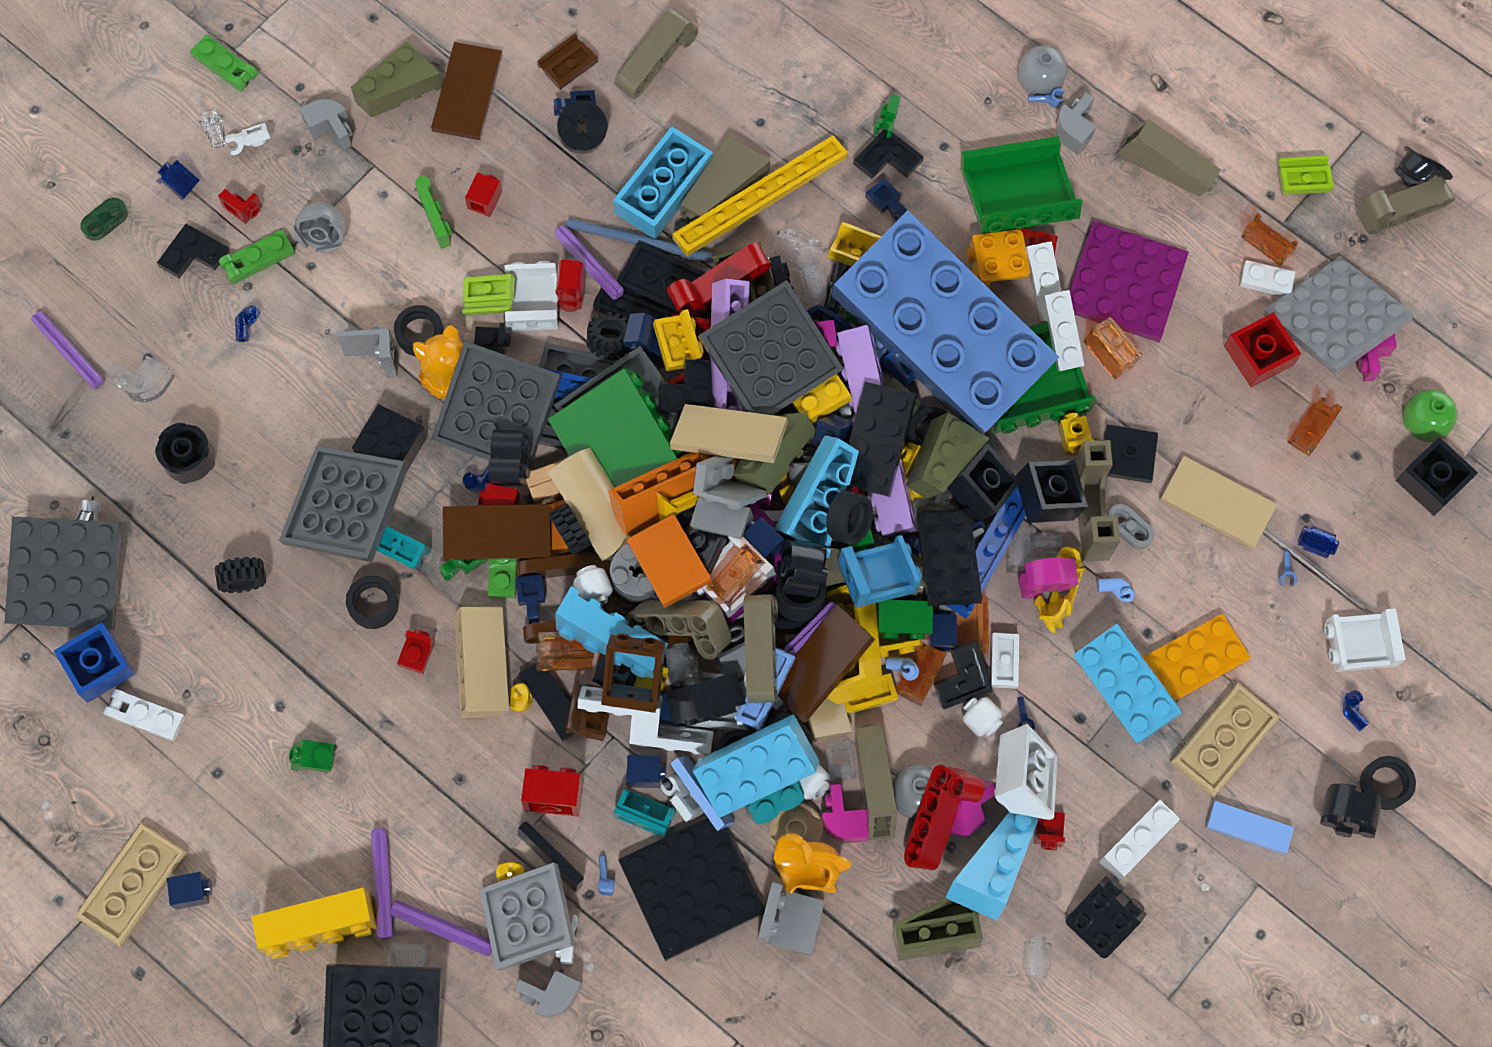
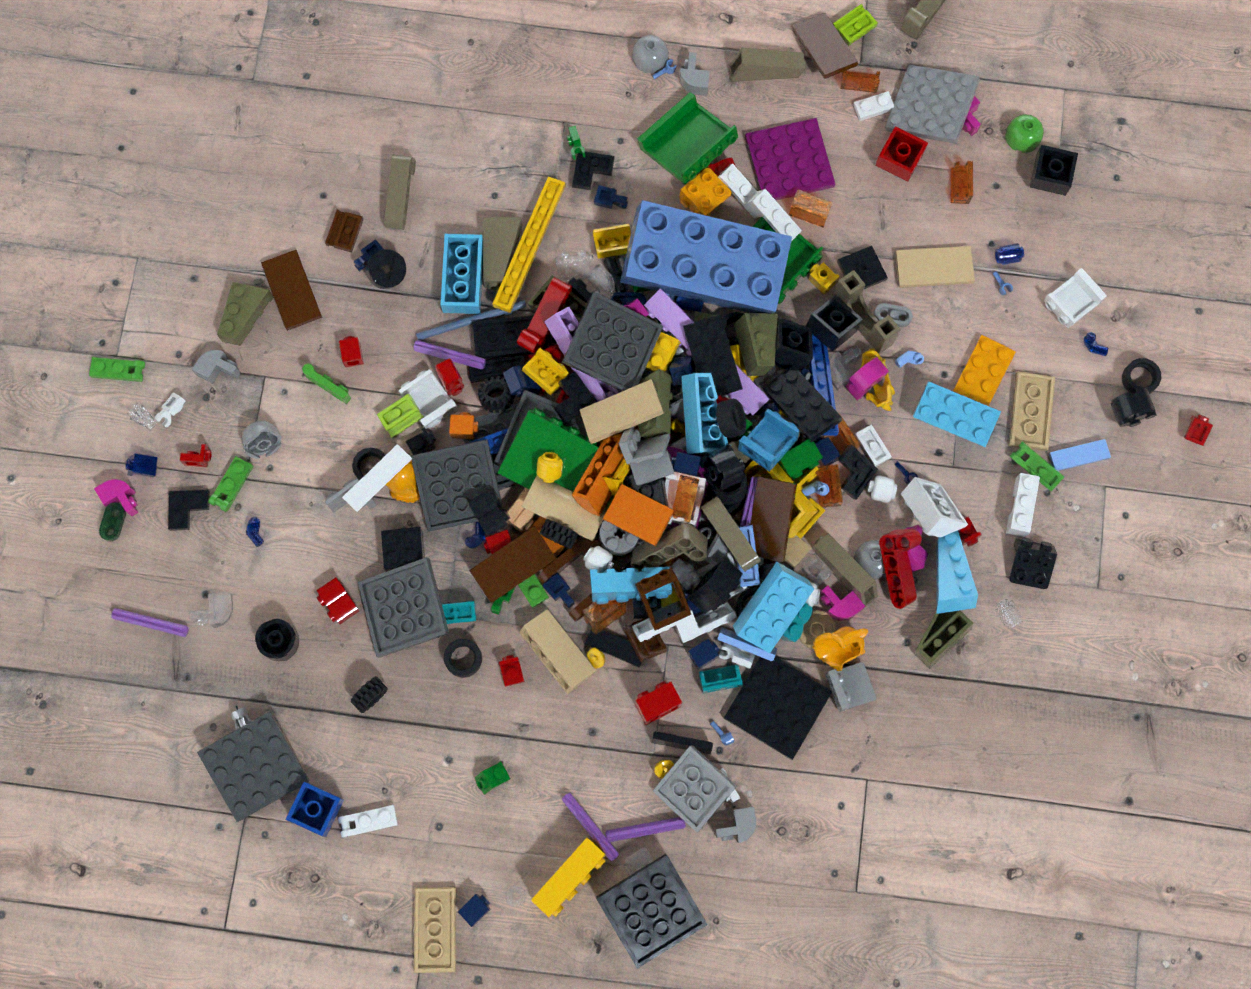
camera: 30 degrees left, 5 degrees up
(132, 191) = (117, 491): none -> dark pink brick
(280, 452) = (337, 600): none -> red brick
(410, 341) = (377, 478): none -> white sticker
(547, 346) = (463, 426): none -> orange brick
(606, 446) = (549, 467): none -> yellow head
(1188, 807) = (1037, 466): none -> bright green plate
(1252, 177) = (825, 45): none -> tile
(1418, 889) = (1198, 429): none -> red bracket

